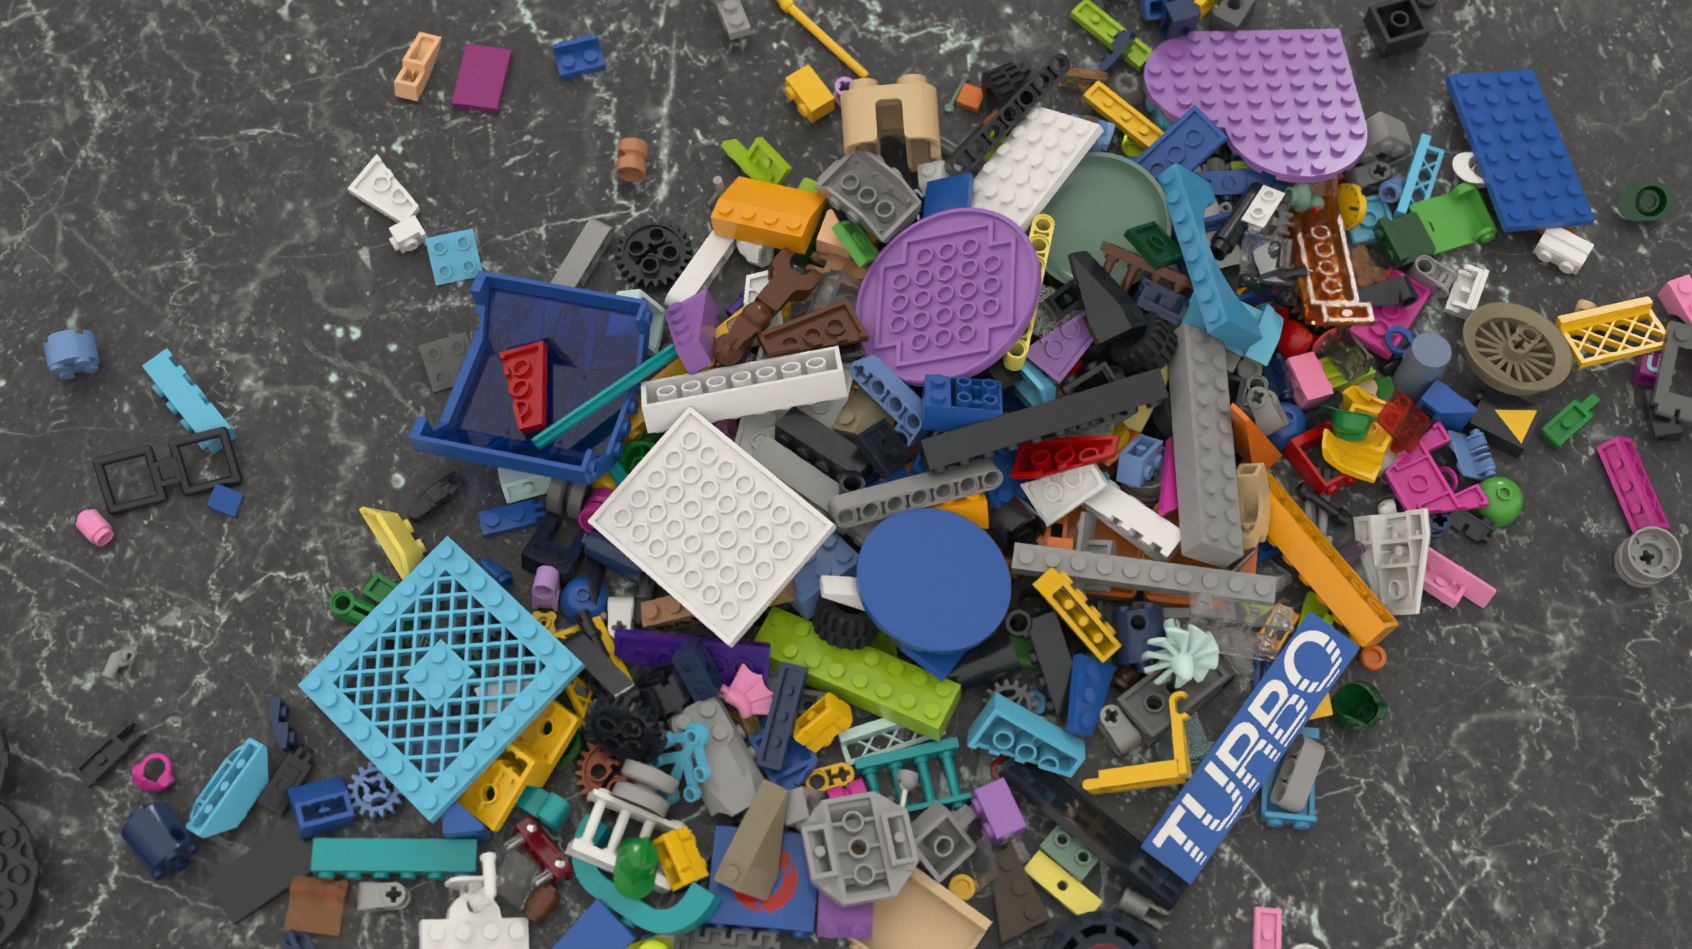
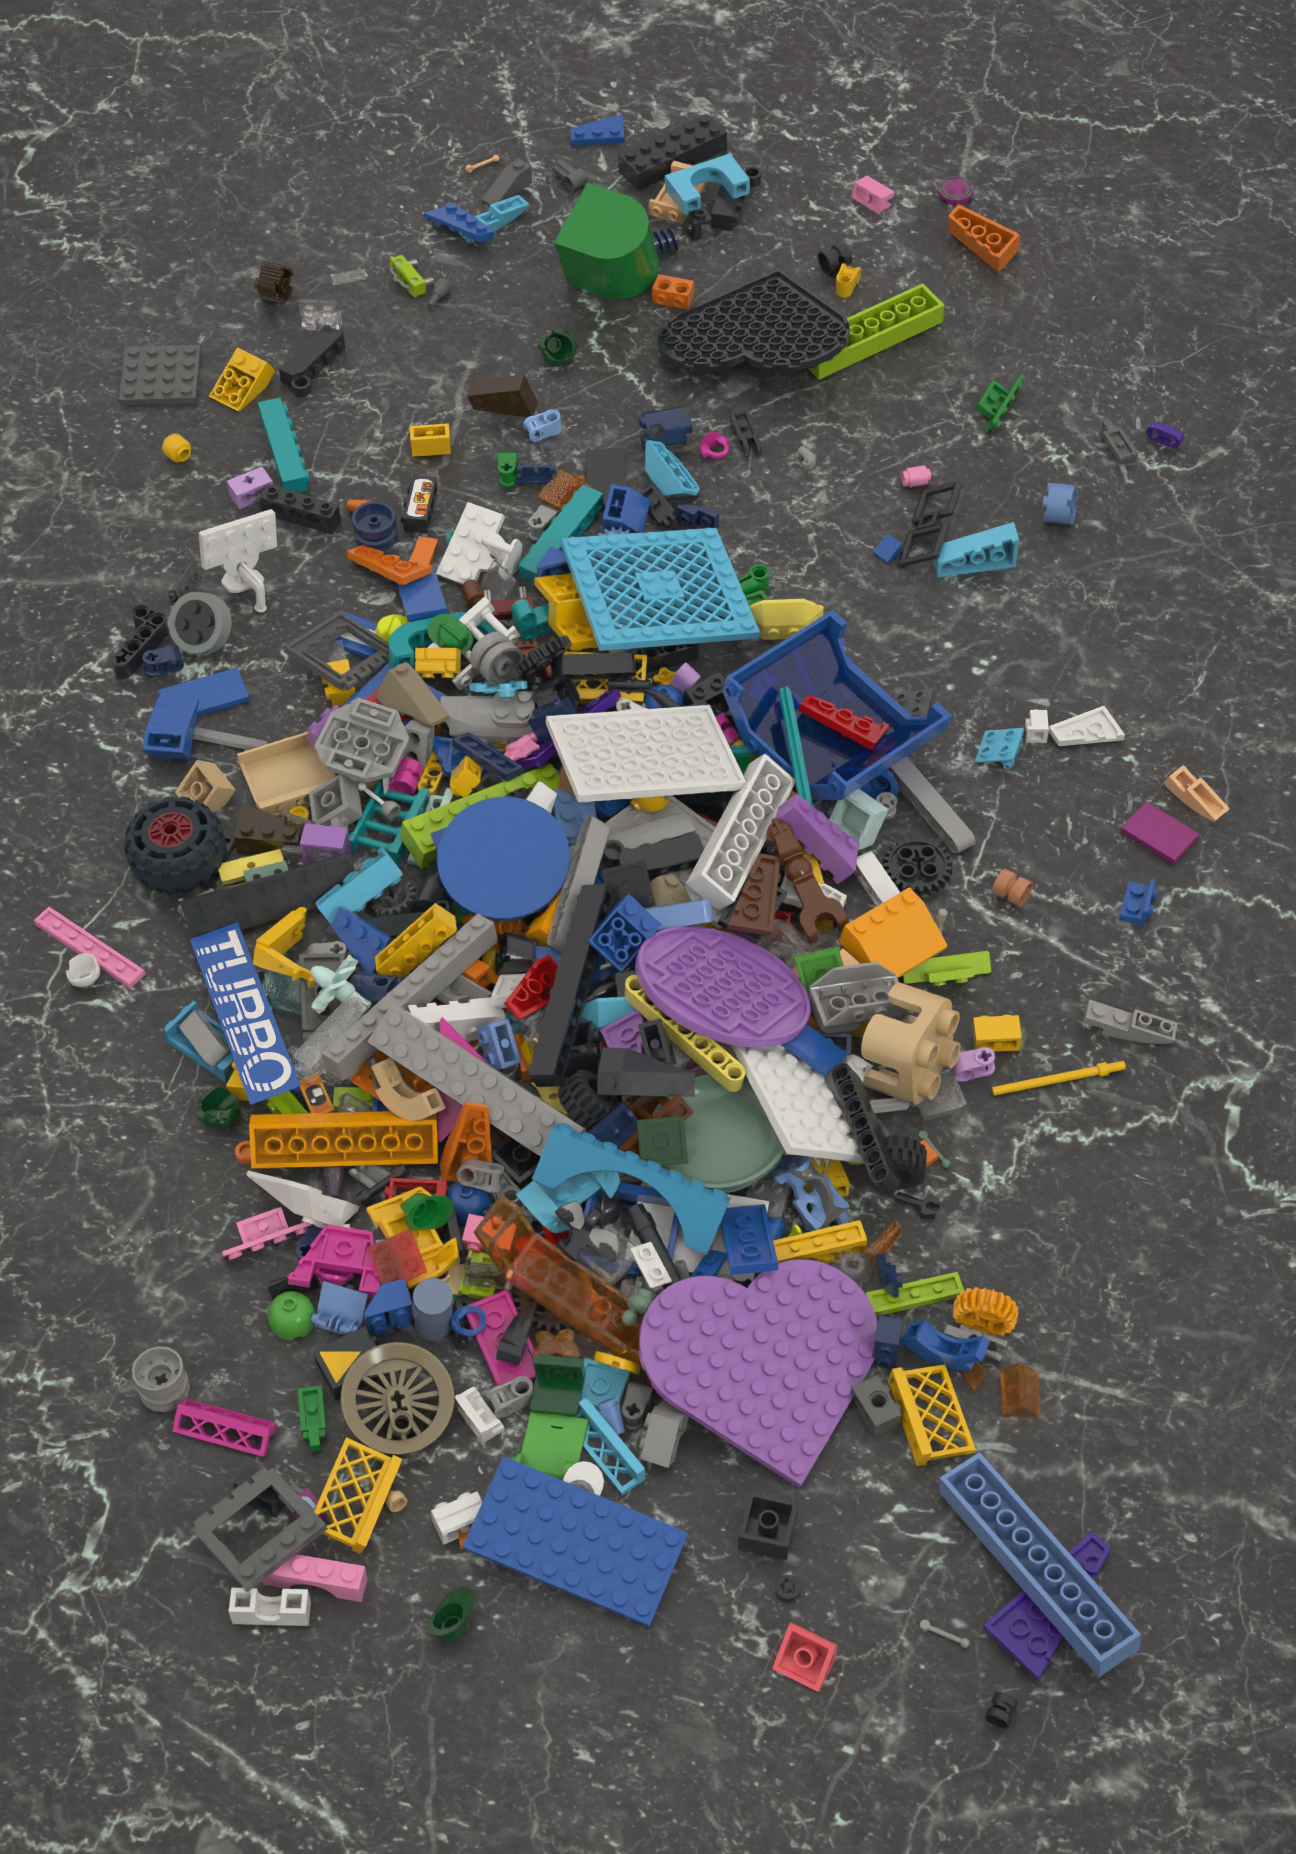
camera: 125 degrees right, 15 degrees down
(497, 572) = (721, 665): blue cone -> none

